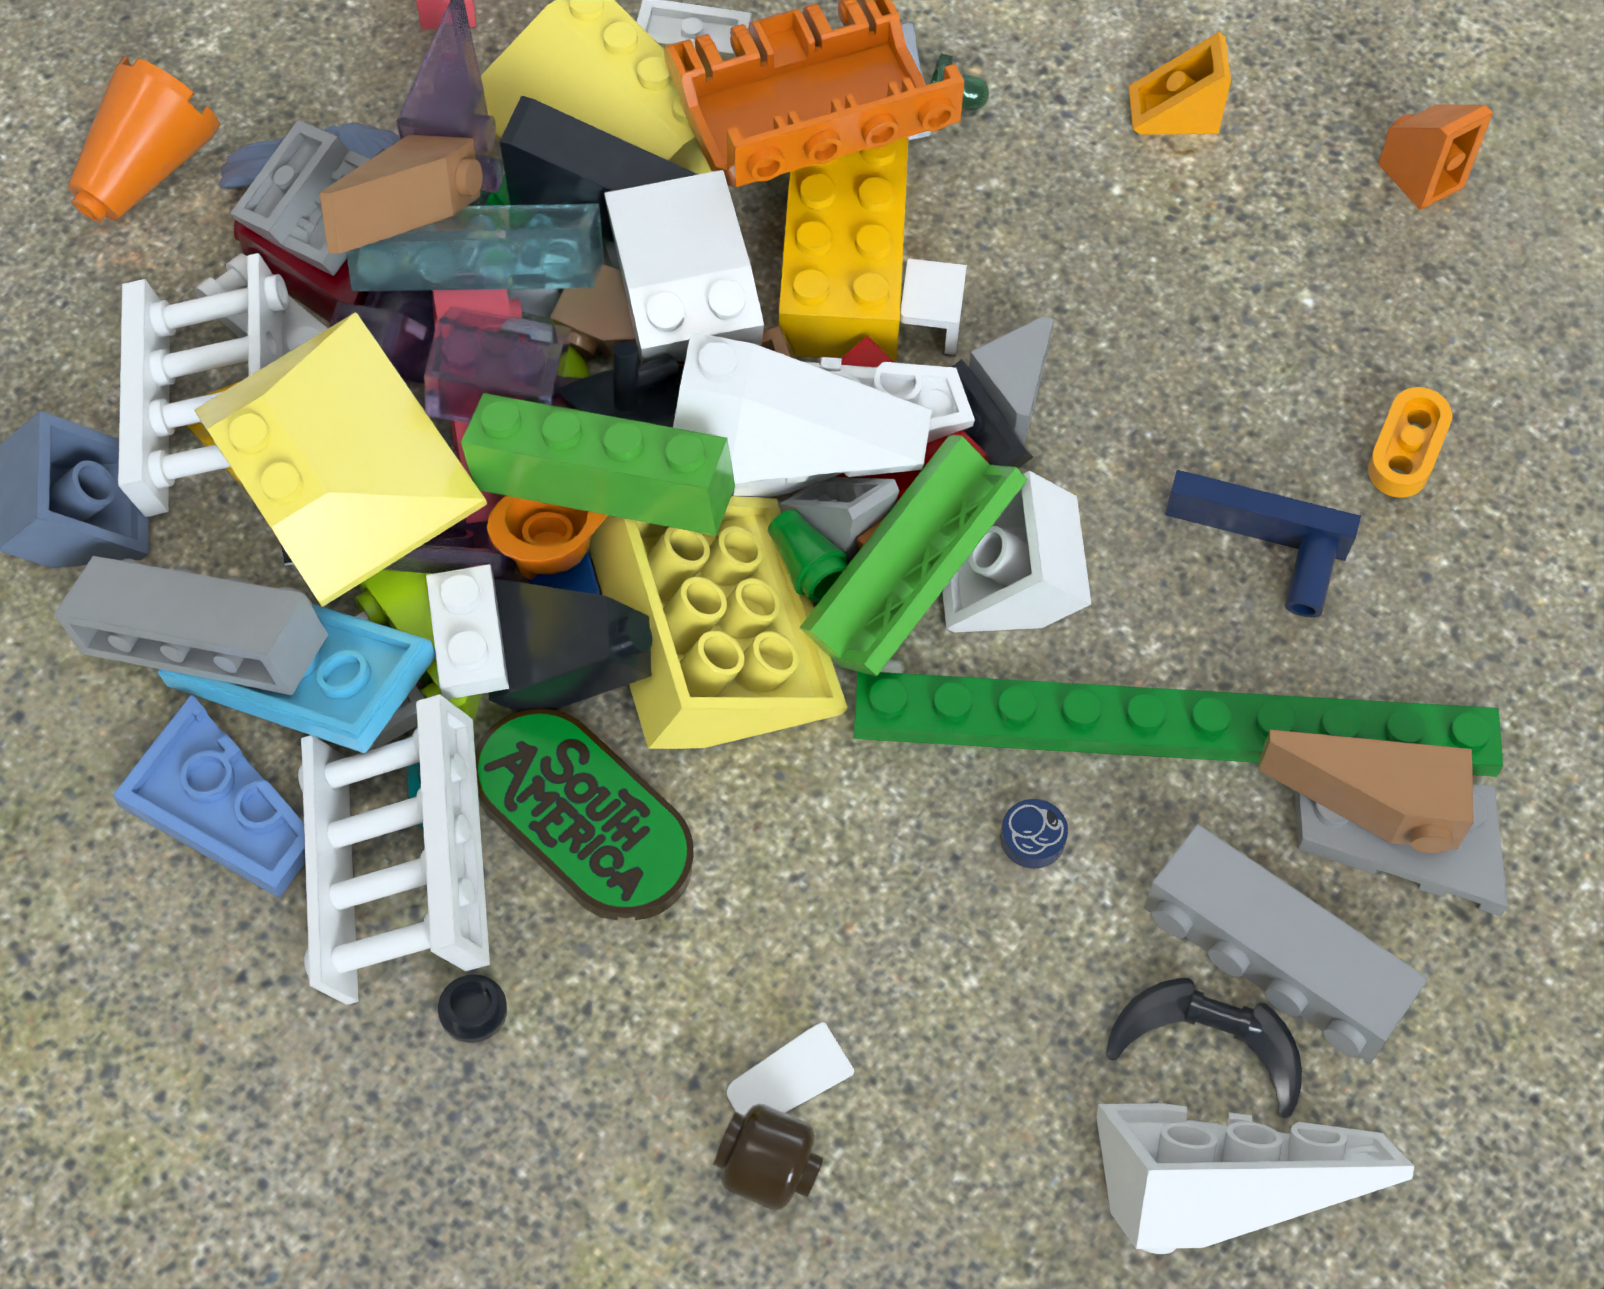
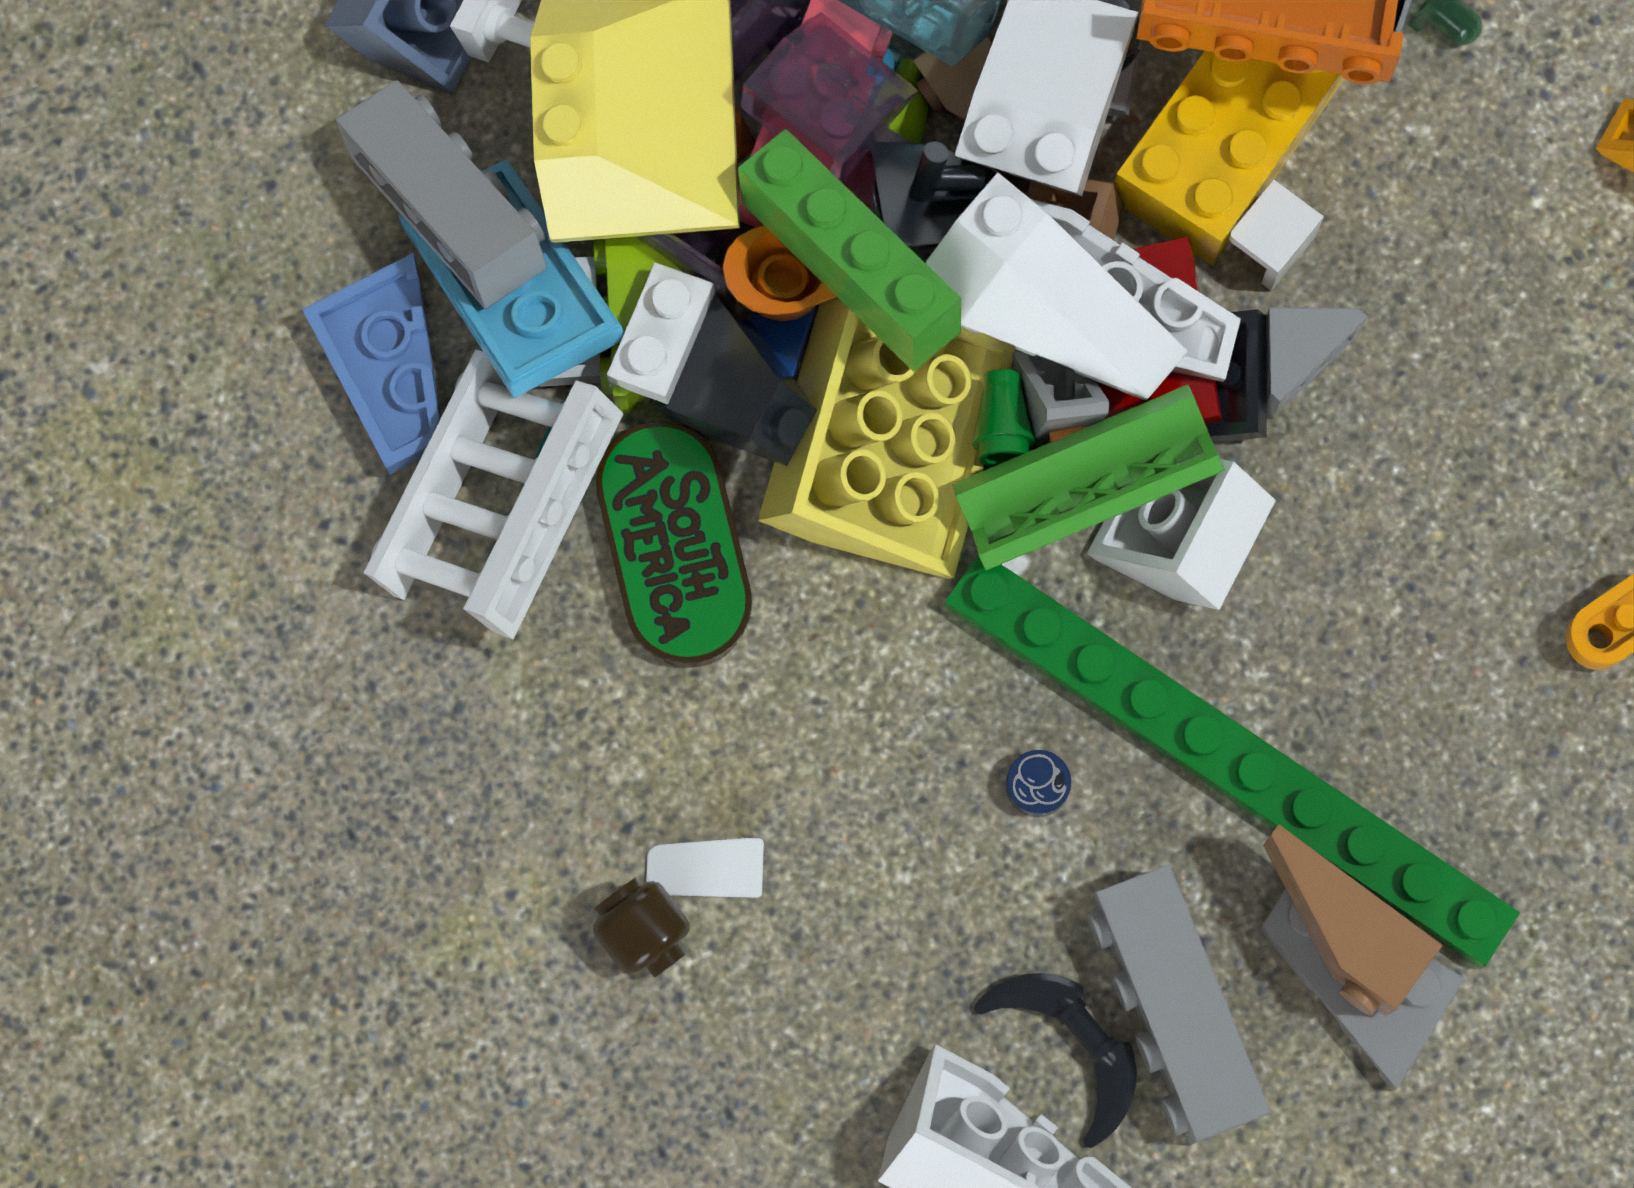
camera: 35 degrees right, 15 degrees up
(472, 1008) = (487, 662): black plate -> none
(1314, 530) = (1473, 658): dark blue piece -> none

